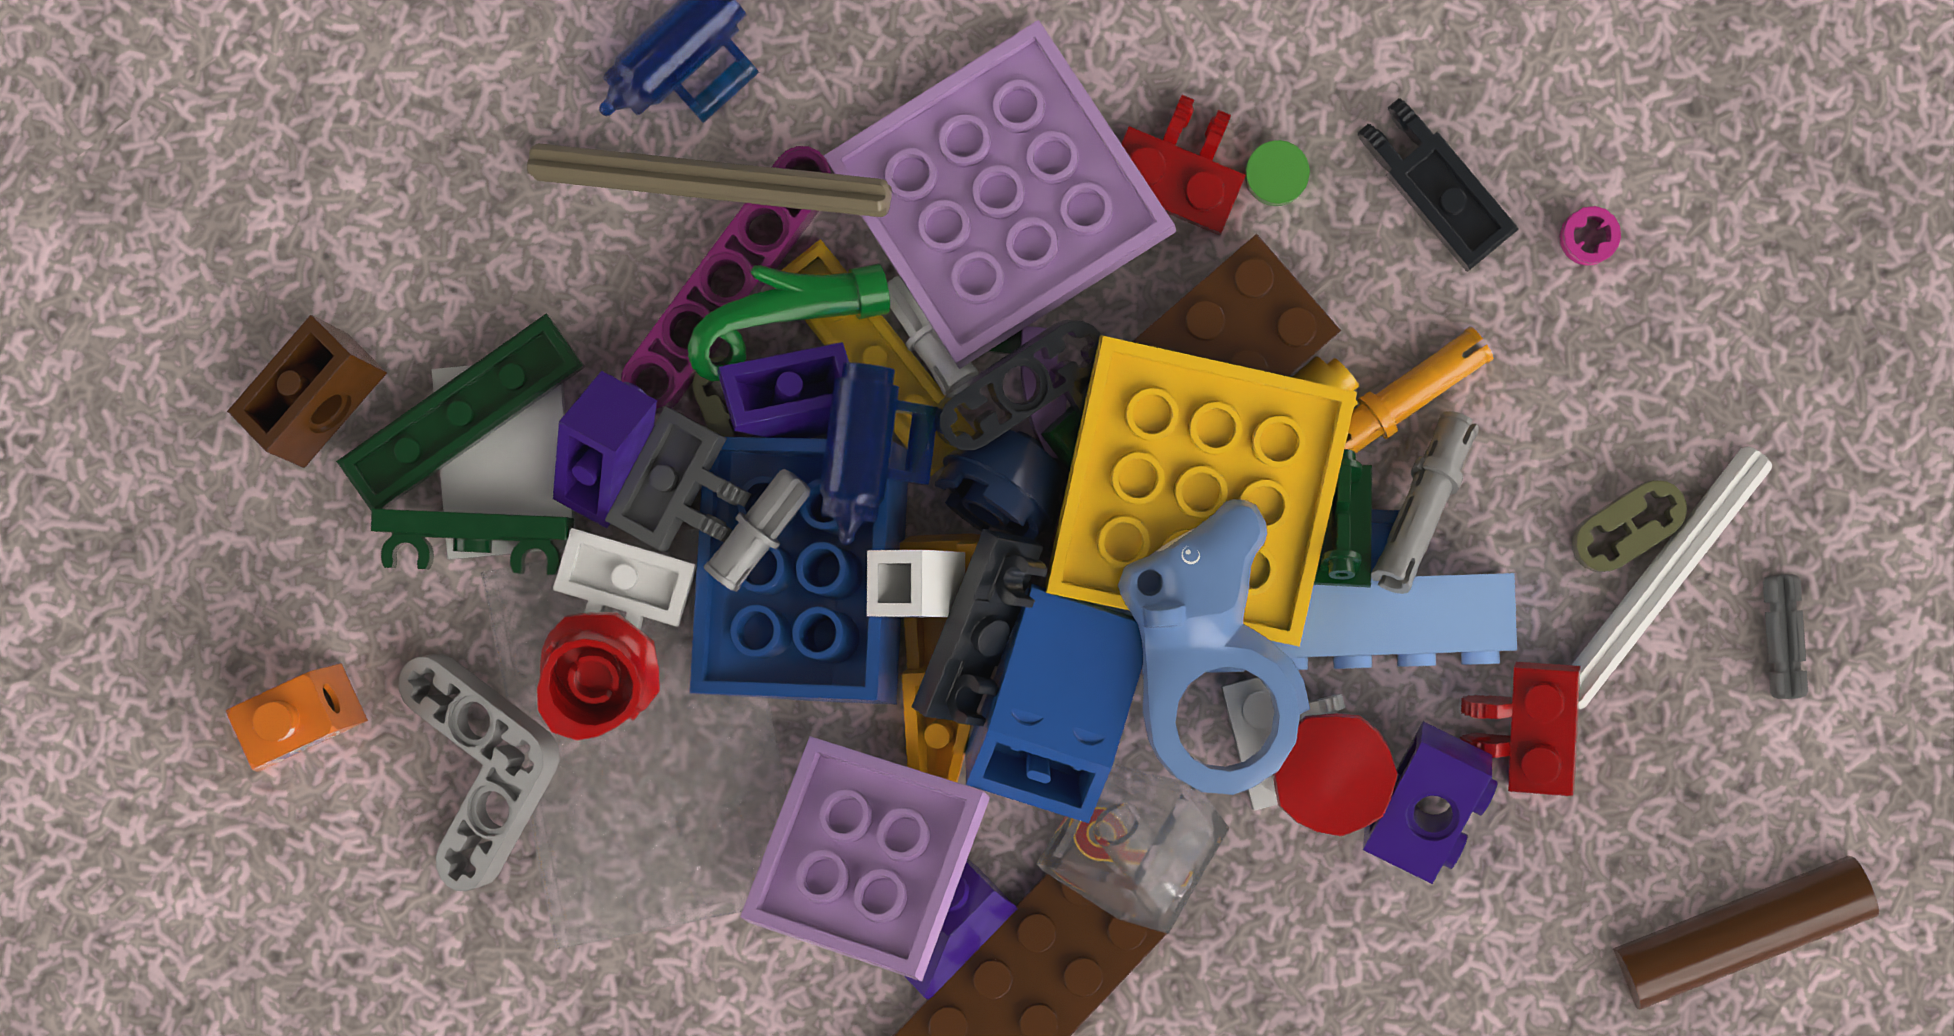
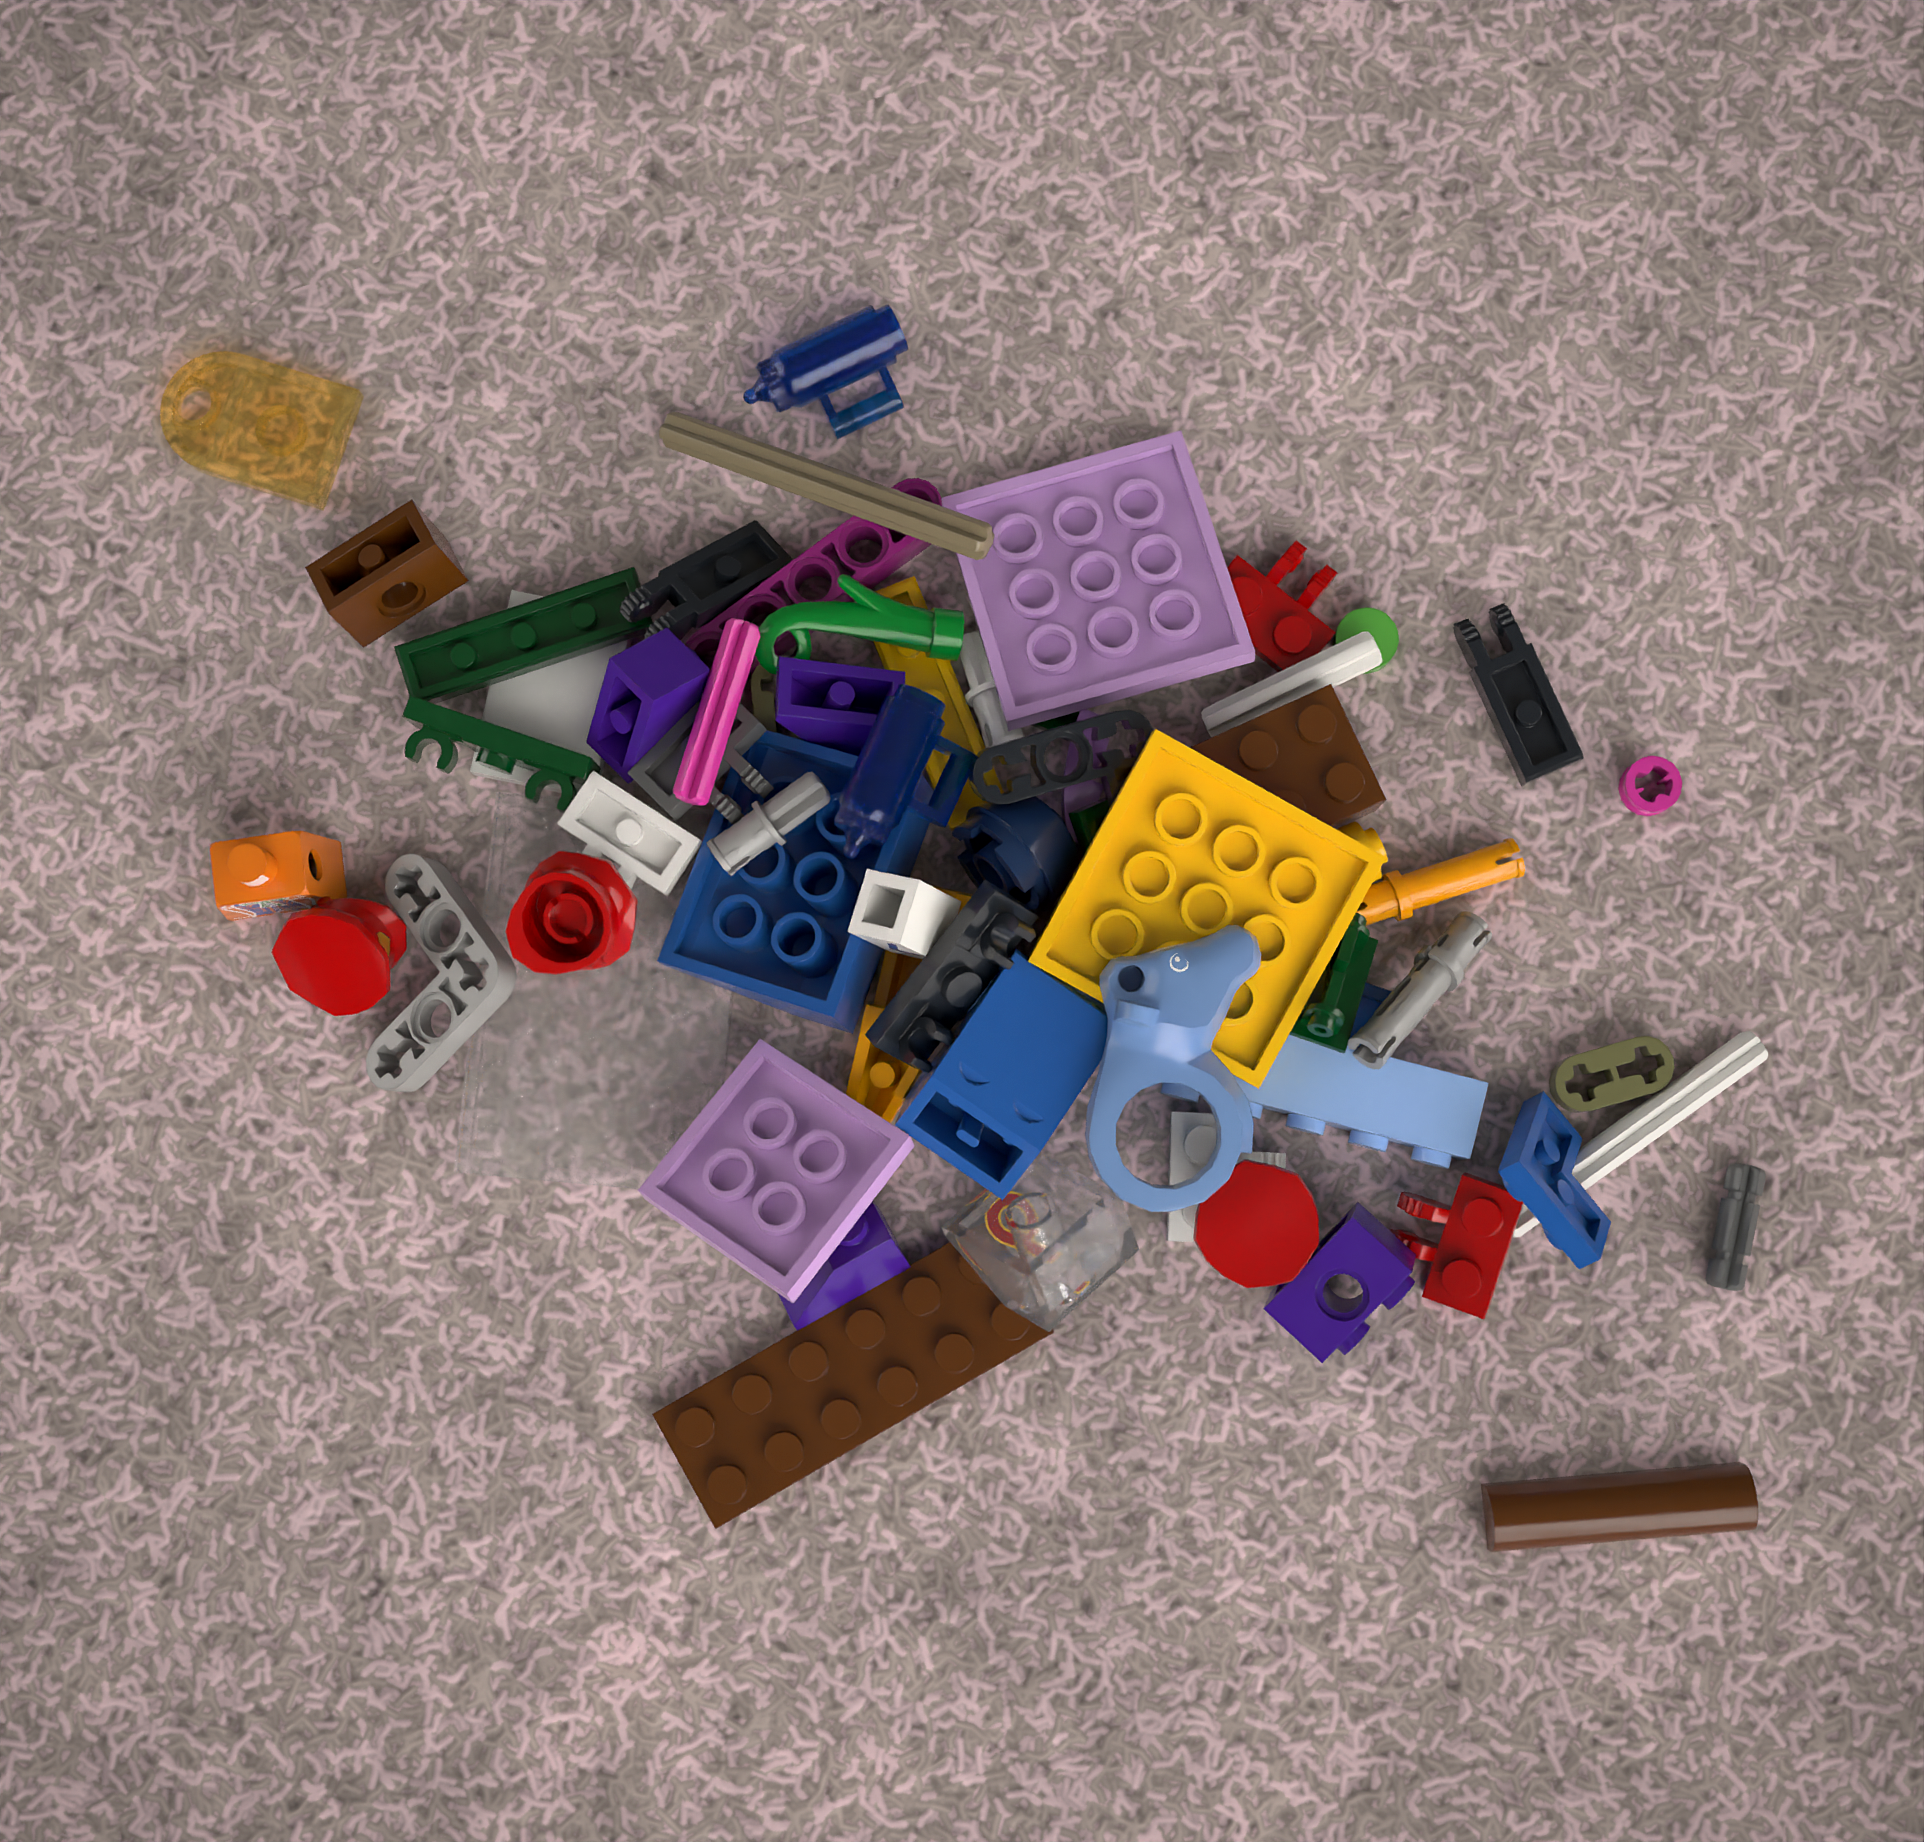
camera: 25 degrees right, 5 degrees down
(134, 276) = (263, 425): none -> clear yellow tile
(381, 774) = (341, 953): none -> red hat
(625, 306) = (707, 581): none -> black hinge
(675, 438) = (716, 712): none -> dark pink axle
(1219, 241) = (1325, 668): none -> white axle
(1586, 647) = (1539, 1174): none -> blue plate

